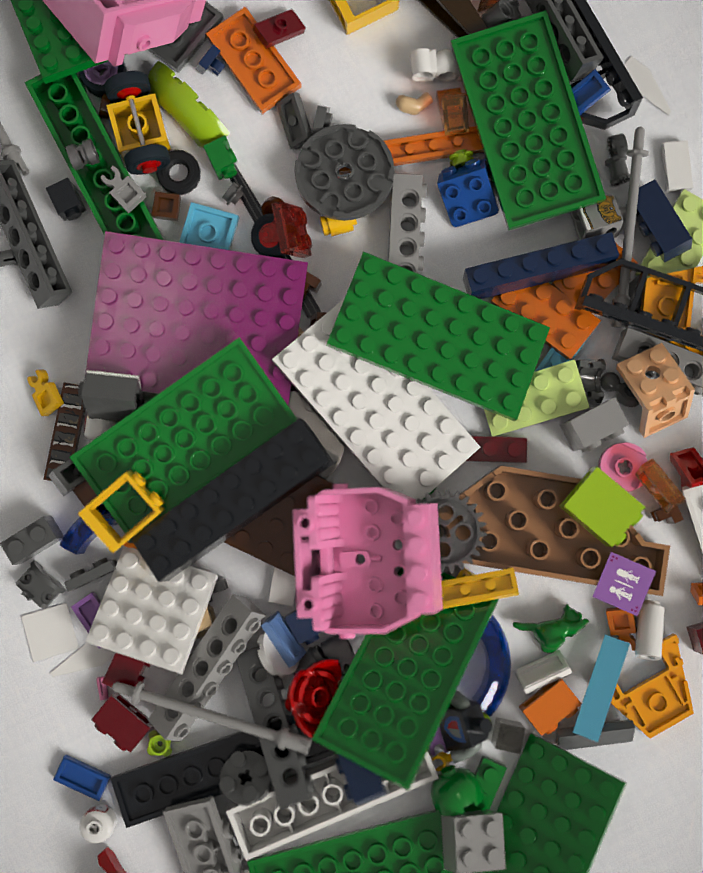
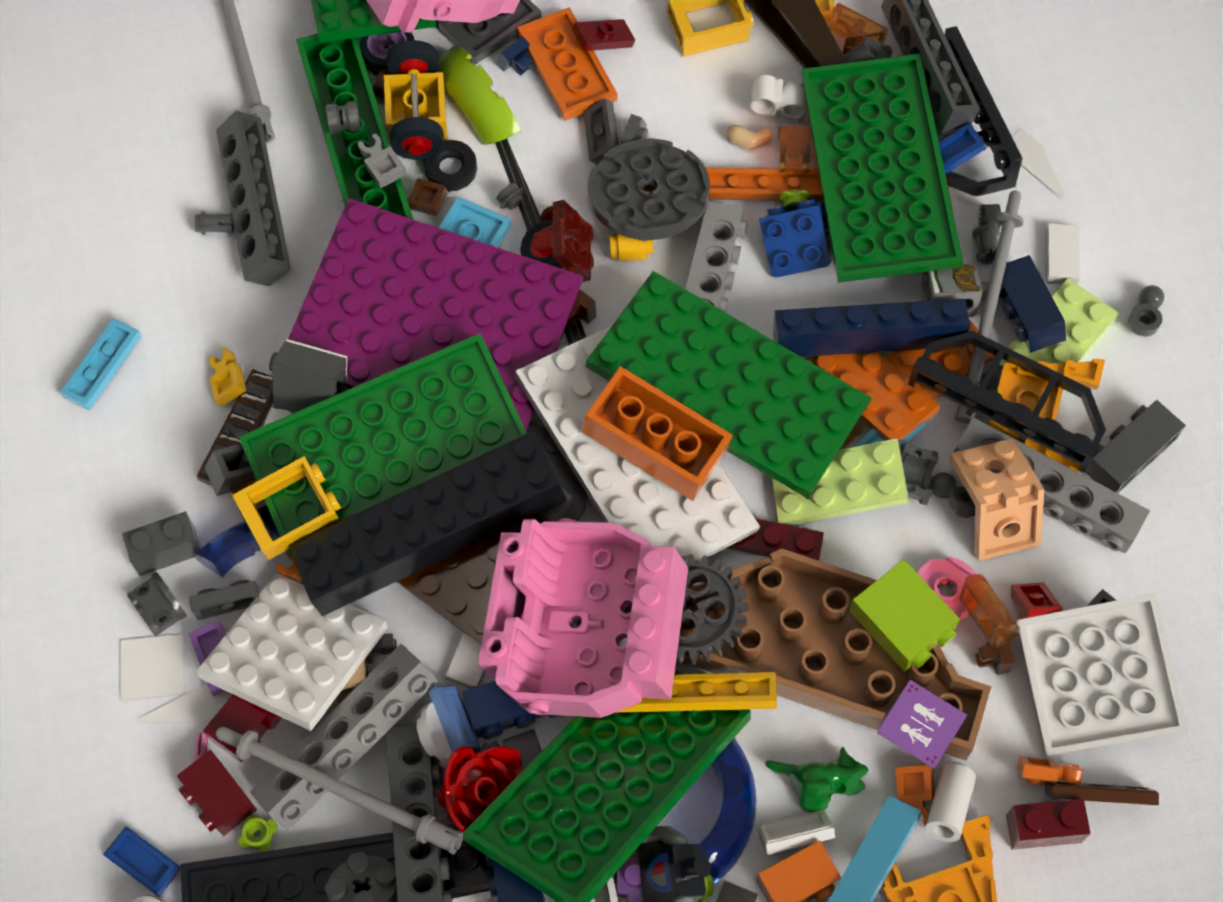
camera: 15 degrees right, 20 degrees down
(66, 199) = (310, 171): black brick -> none
(221, 158) = (505, 155): green brick -> none
(393, 396) = (656, 433): none -> orange brick
(597, 423) = (912, 524): light grey brick -> none

